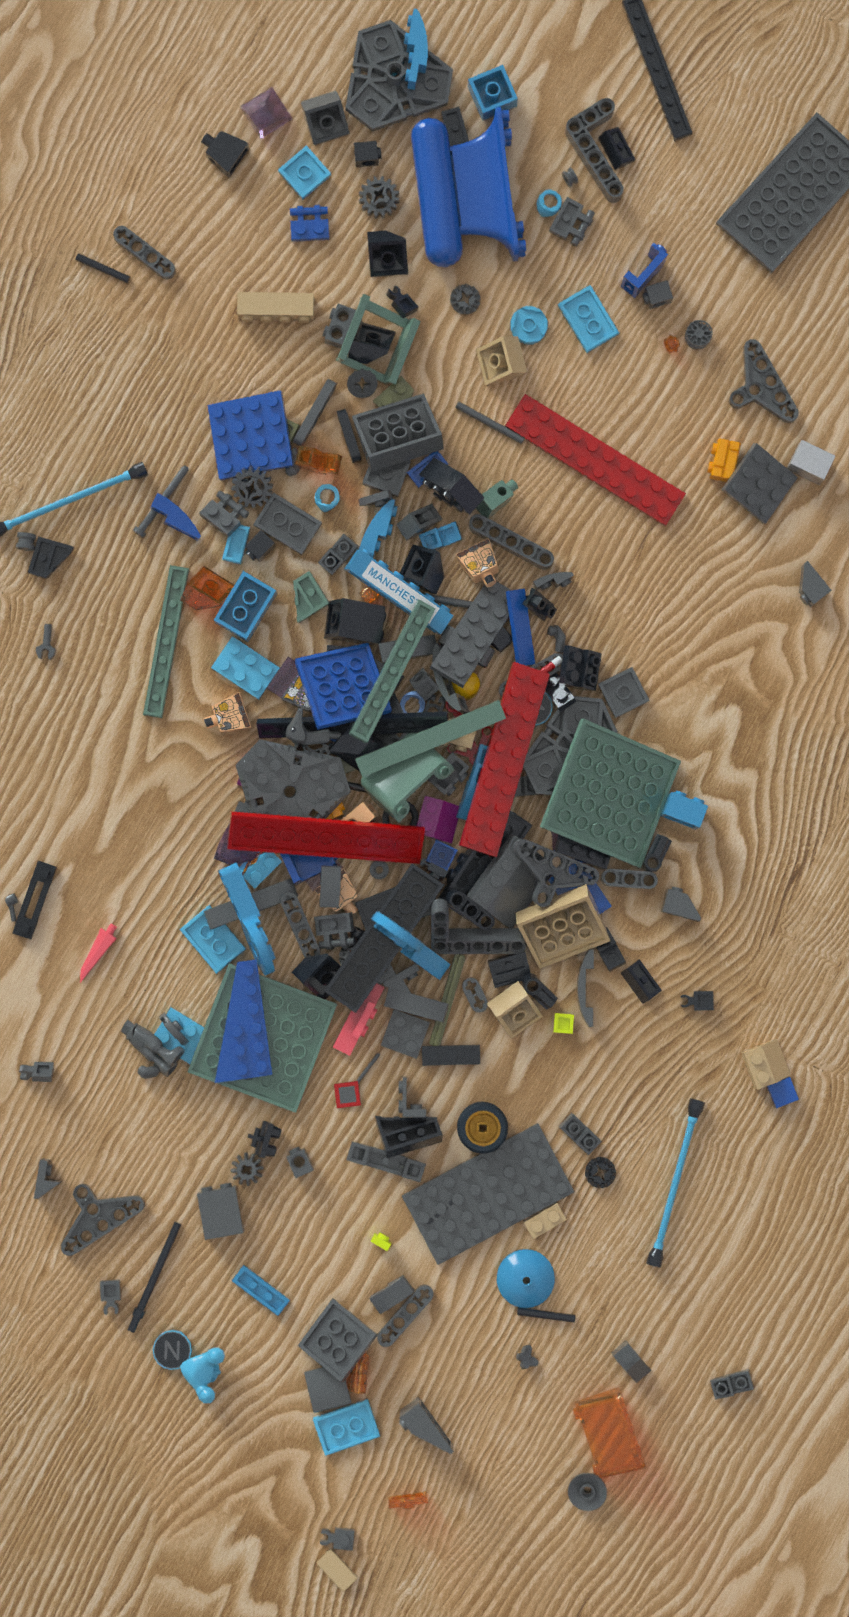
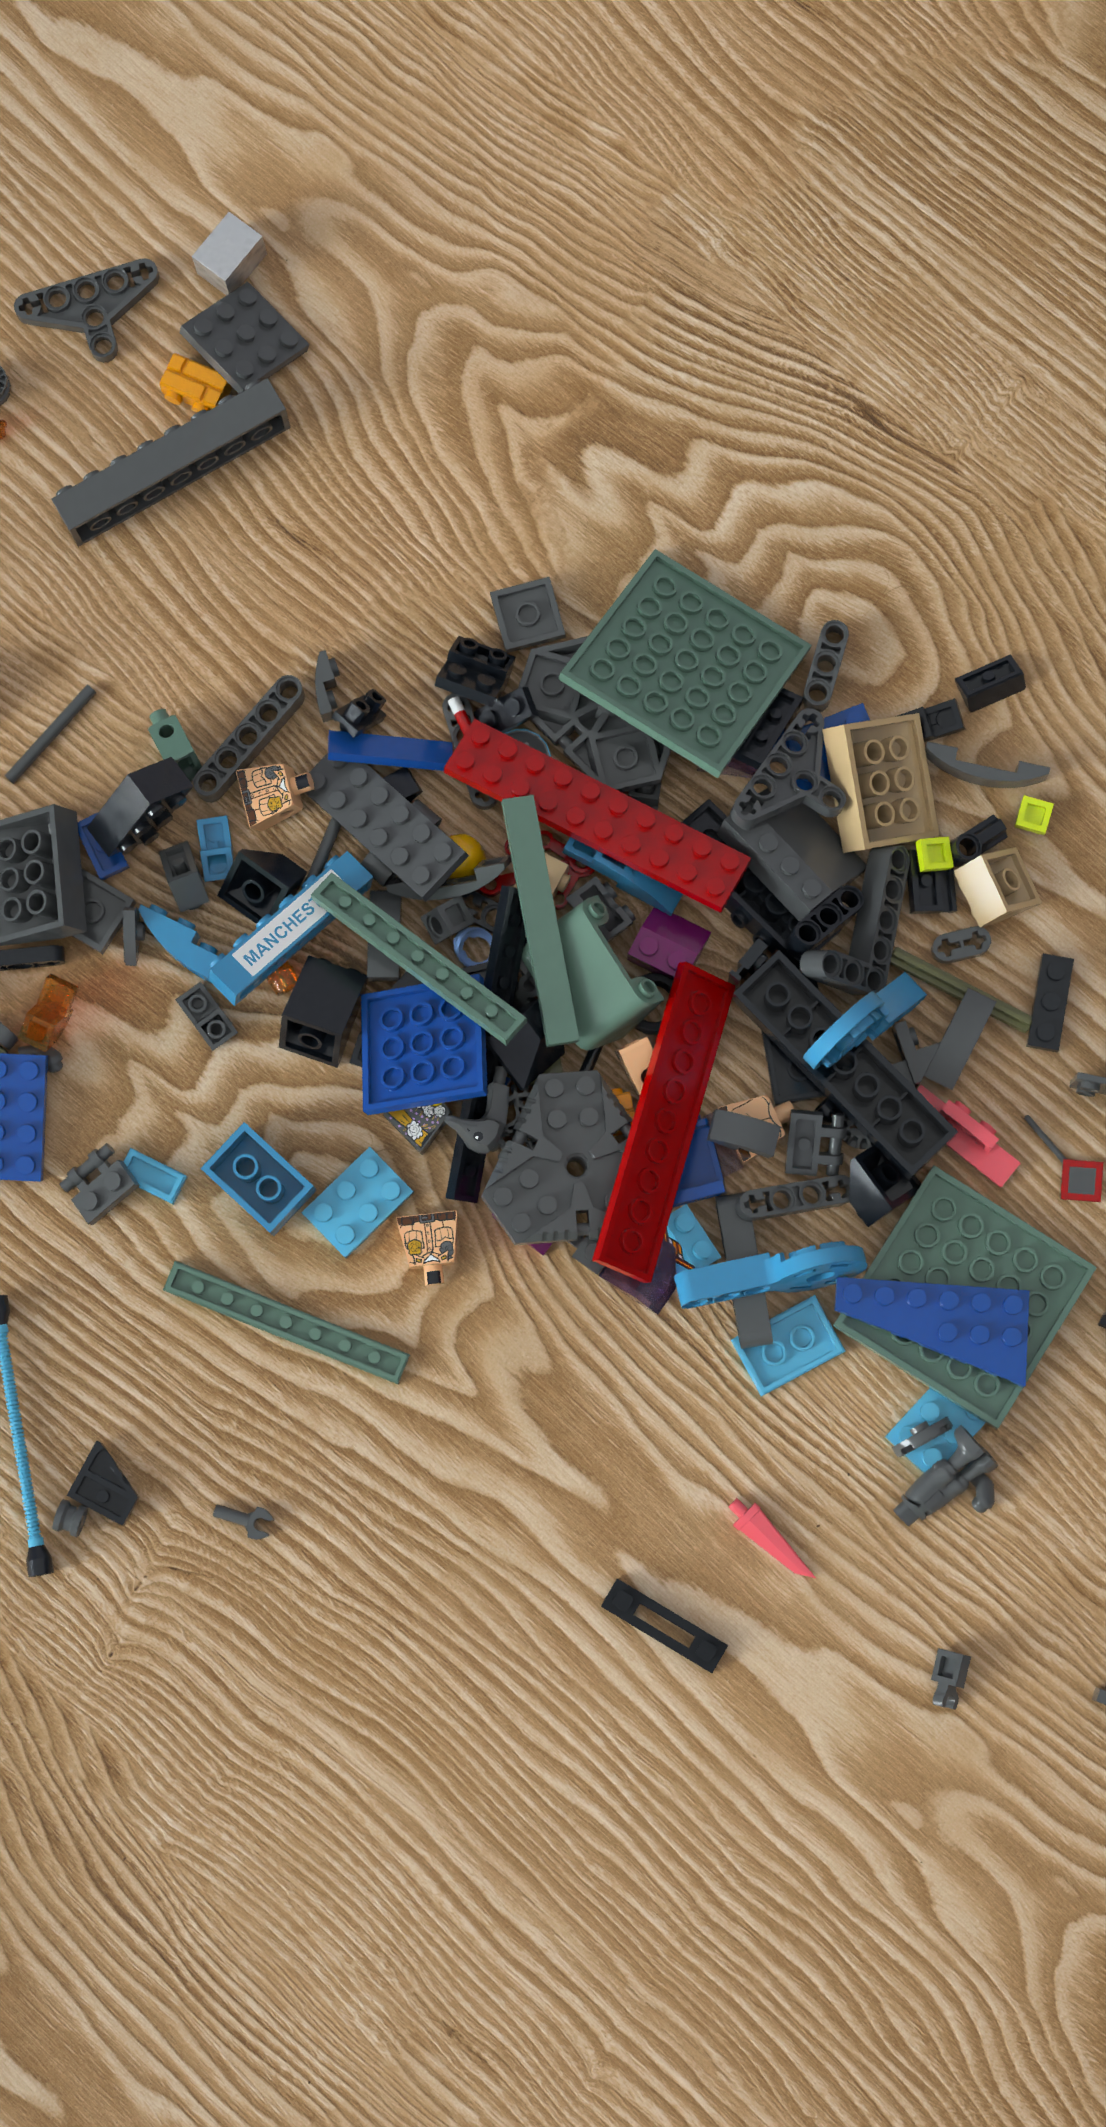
camera: 65 degrees left, 5 degrees down
(10, 901) = (657, 1665): dark grey hand -> none
(167, 493) = (95, 1327): dark grey bar -> none
(175, 516) = (86, 1263): blue slope -> none
(206, 590) = (218, 1237): clear orange slope -> none
(259, 488) = (58, 1138): dark grey gear -> none
(259, 546) = (165, 1138): black brick -> none
(283, 677) = (387, 1142): clear purple tile -> none
(287, 523) = (139, 1086): dark grey plate -> none
(308, 596) = (265, 1077): sand green wing -> none
(326, 507) = (125, 1022): medium azure piece -> none
(373, 869) = (734, 1046): dark grey plate -> none
(405, 1033) = (1002, 1068): dark grey plate -> none
(441, 854) = (725, 950): blue piece -> none
(524, 967) = (934, 854): none -> neon yellow plate
(559, 635) = (409, 698): dark grey arm -> none
(595, 460) = (148, 583): red plate -> none
(657, 852) = (792, 614): black piece -> none
(670, 456) = (171, 461): none -> dark grey brick
(679, 904) = (881, 597): dark grey slope -> none
(684, 810) = (736, 555): dark azure brick -> none
(702, 1000) = (1040, 595): black plate -> none
(811, 585) = (422, 294): dark grey slope -> none

